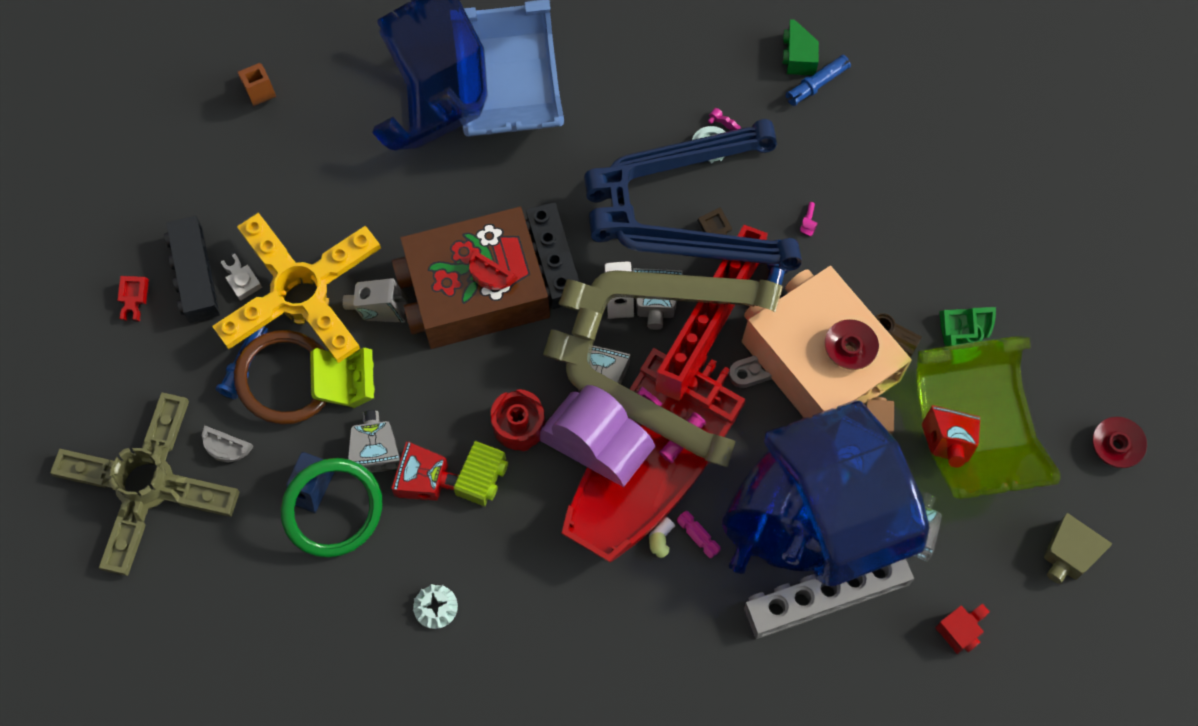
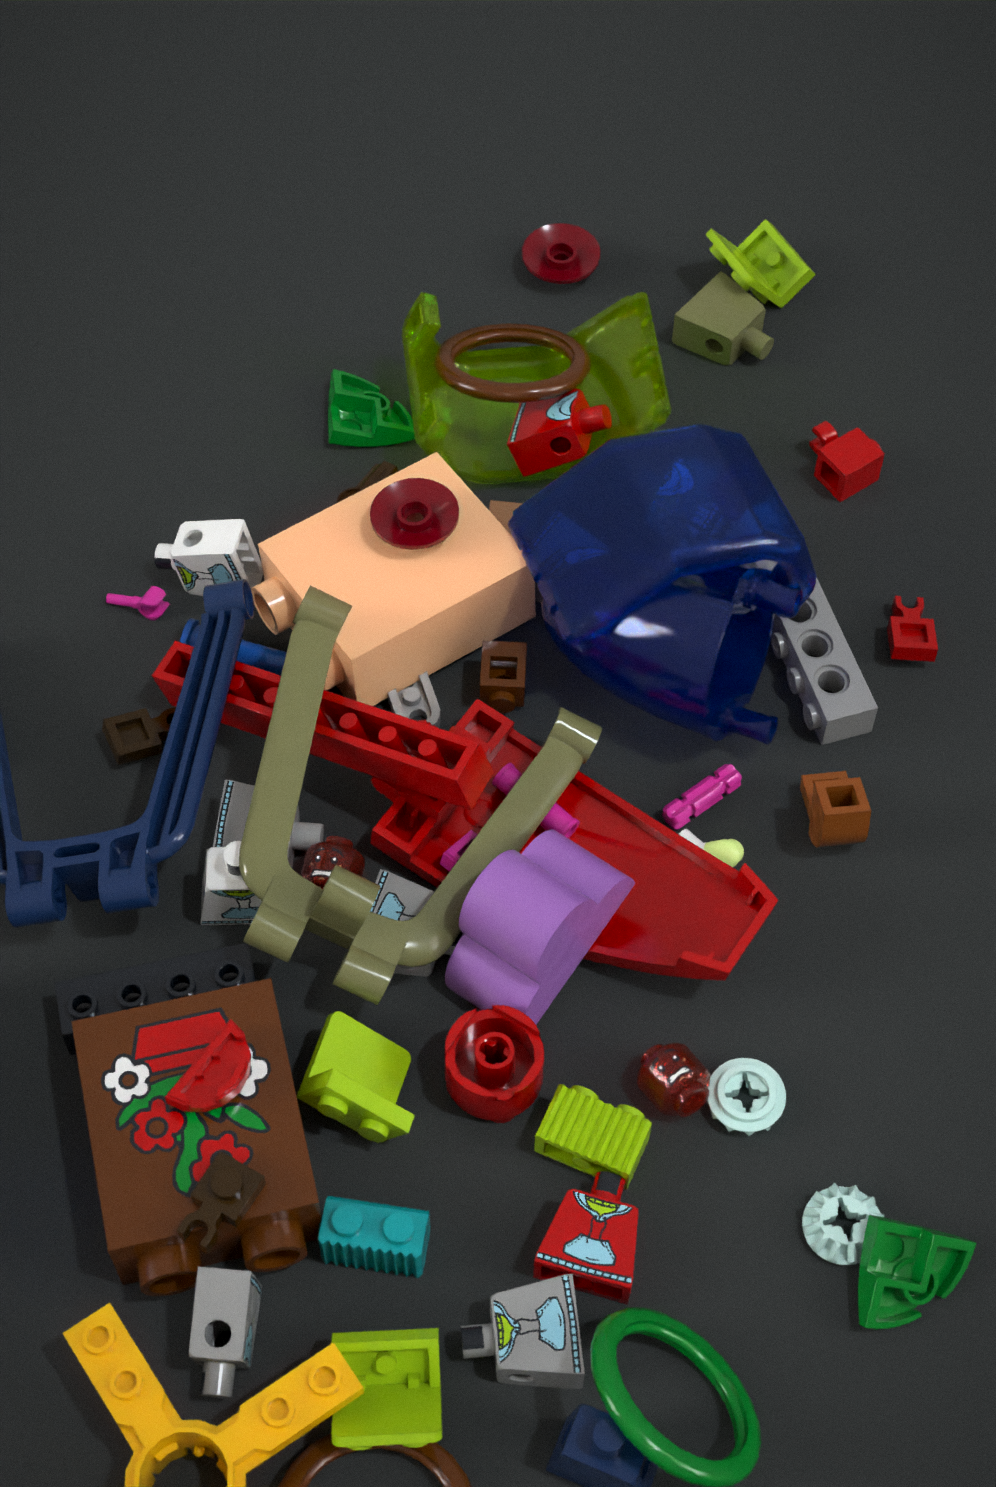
camera: 90 degrees left, 10 degrees down
(408, 636) = (906, 1268): none -> green brick
(424, 367) = (374, 1236): none -> teal brick
(425, 285) = (222, 1194): none -> dark brown plate
(497, 548) = (760, 1081): none -> light aqua gear
(506, 352) = (358, 1079): none -> lime bracket
(513, 514) = (673, 1079): none -> clear red head
(632, 333) = (324, 855): none -> clear red head
(687, 606) = (835, 808): none -> dark orange brick
(775, 410) = (503, 681): none -> reddish brown brick
(825, 664) = (911, 635): none -> red plate
(837, 244) = (211, 554): none -> white torso
(970, 421) = (512, 392): none -> reddish brown wedge
(1125, 571) = (763, 264): none -> lime bracket

